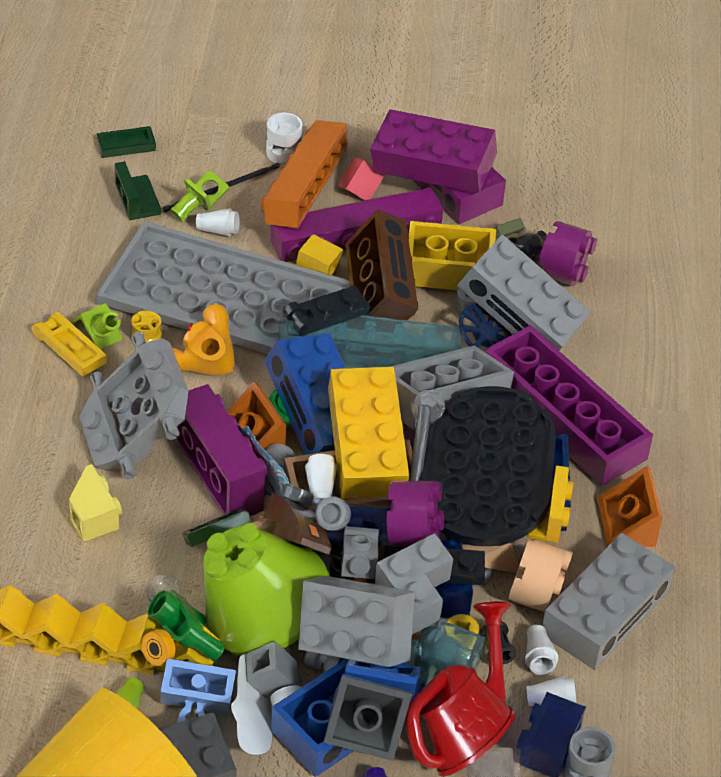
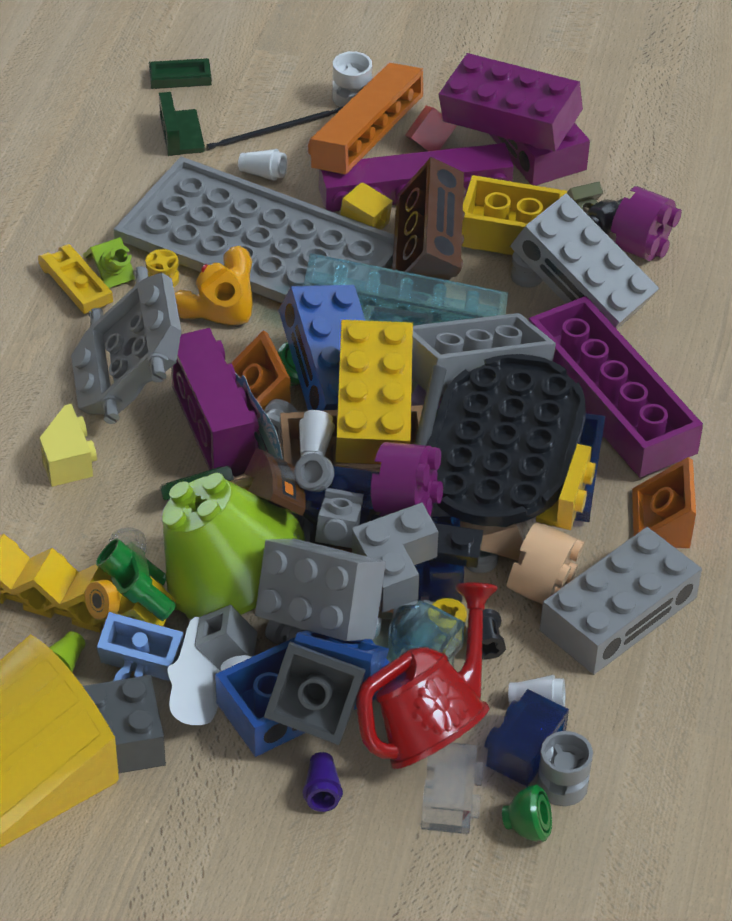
camera: 10 degrees right, 0 degrees up
(196, 196) = (243, 134): lime bracket -> none
(297, 495) = (284, 451): dark grey tile -> none
(326, 310) = (357, 261): black plate -> none
(429, 398) = (453, 365): clear tile -> none
(485, 332) = (536, 300): dark blue wheel -> none
(540, 652) = (533, 648): white cone -> none

